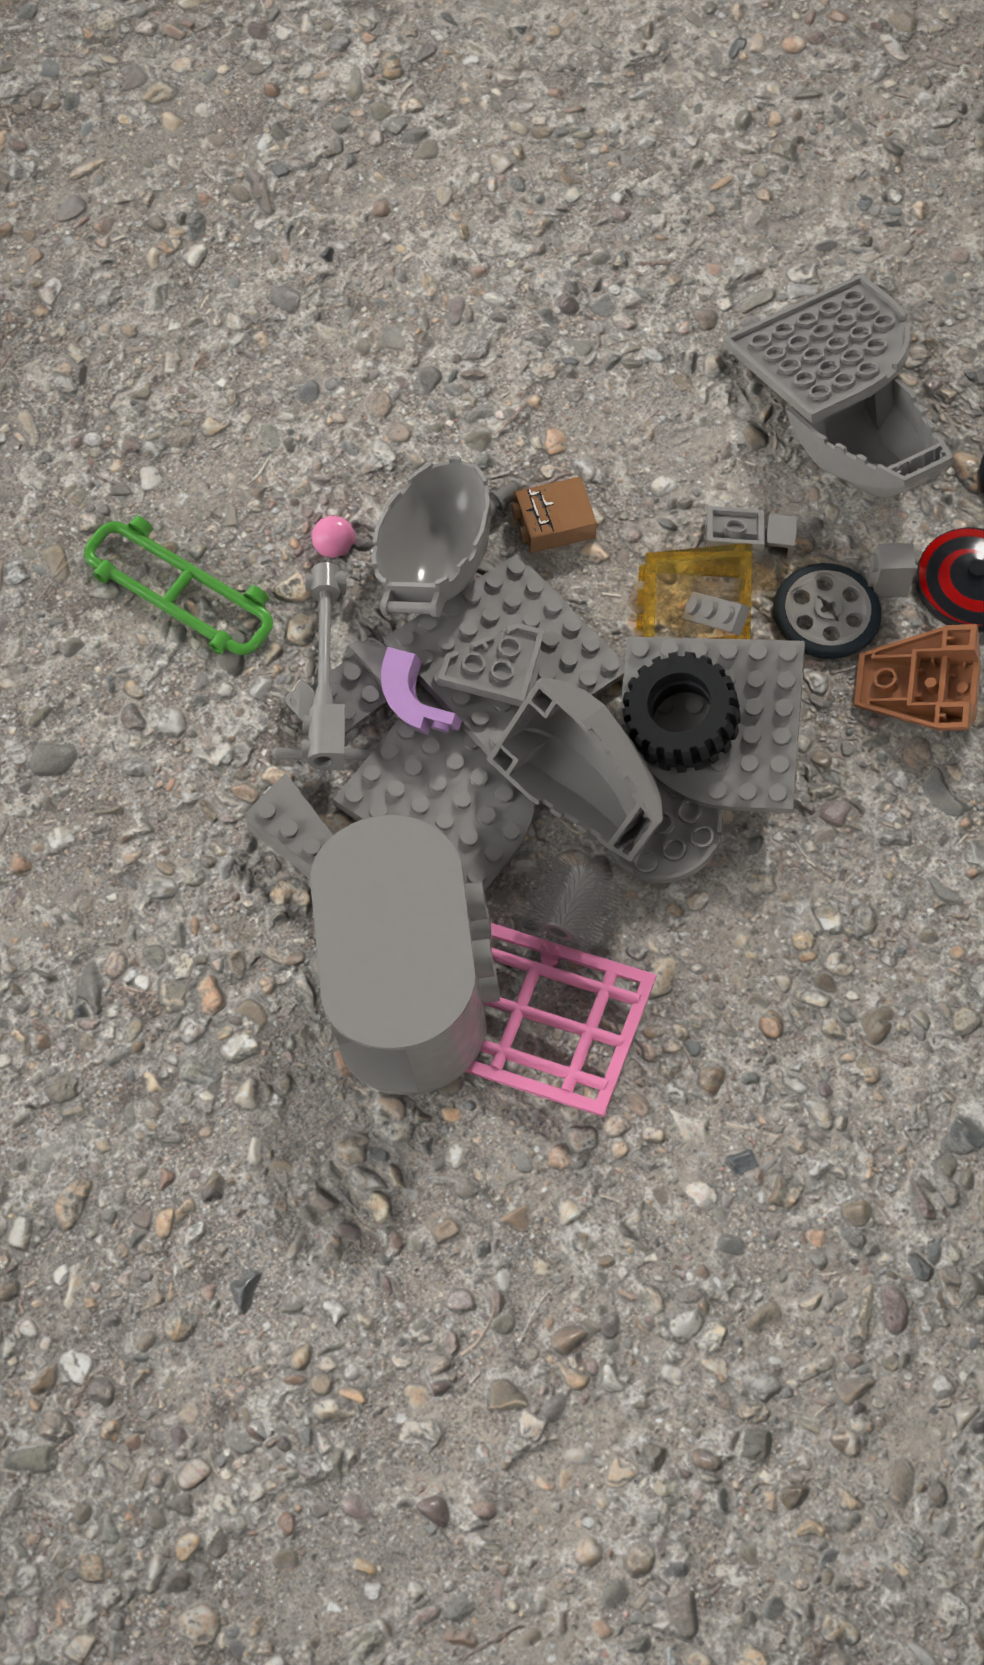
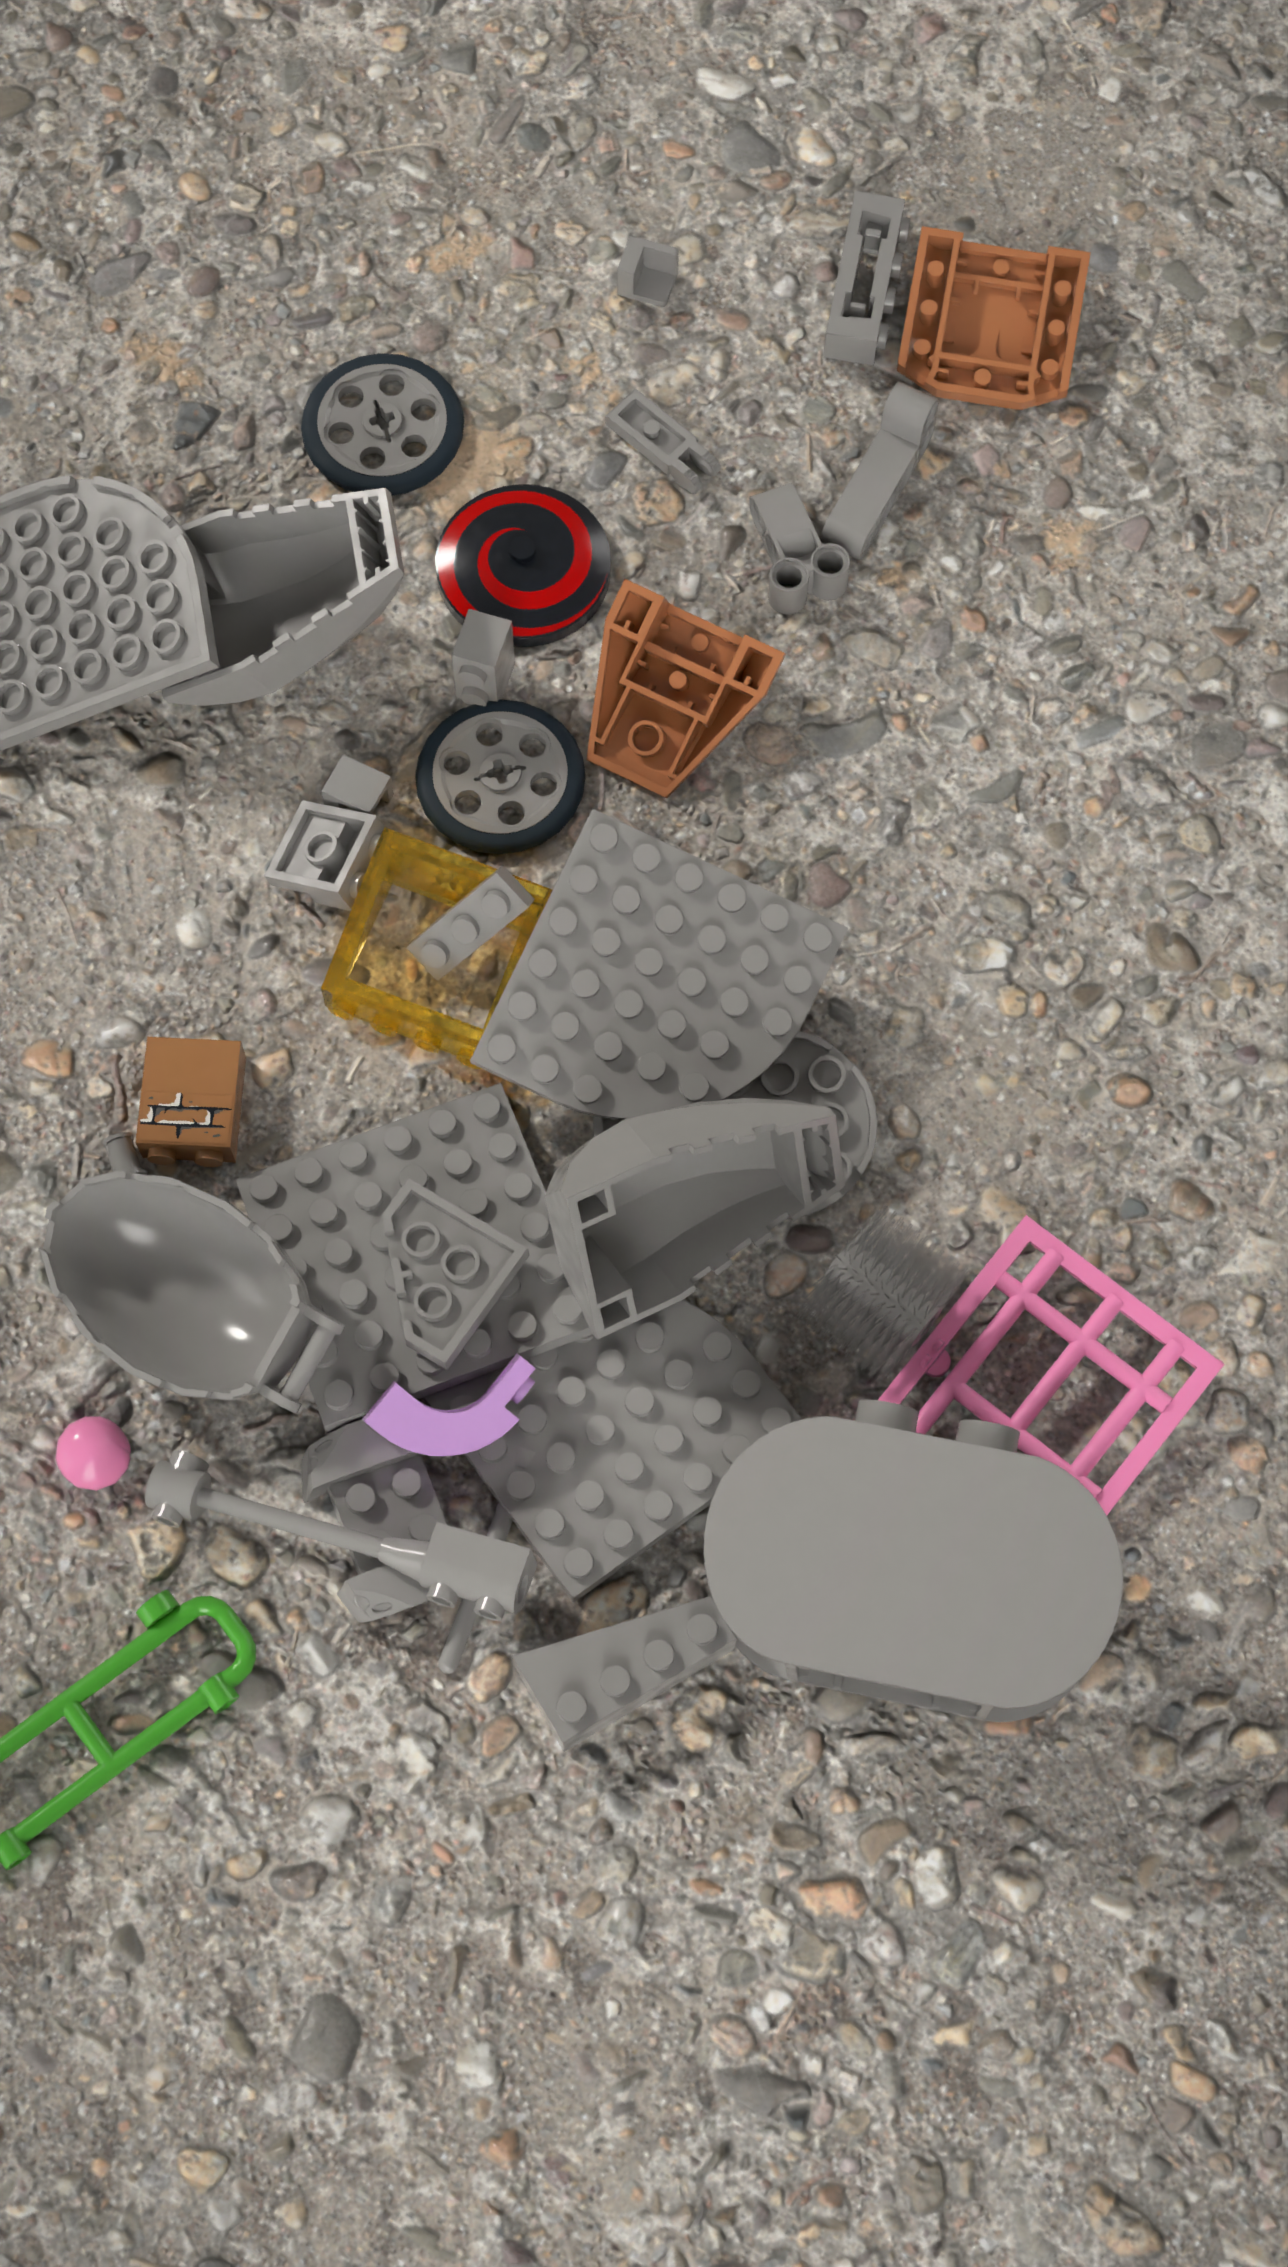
camera: 70 degrees left, 5 degrees up
(676, 676) = (666, 957): black tyre -> none

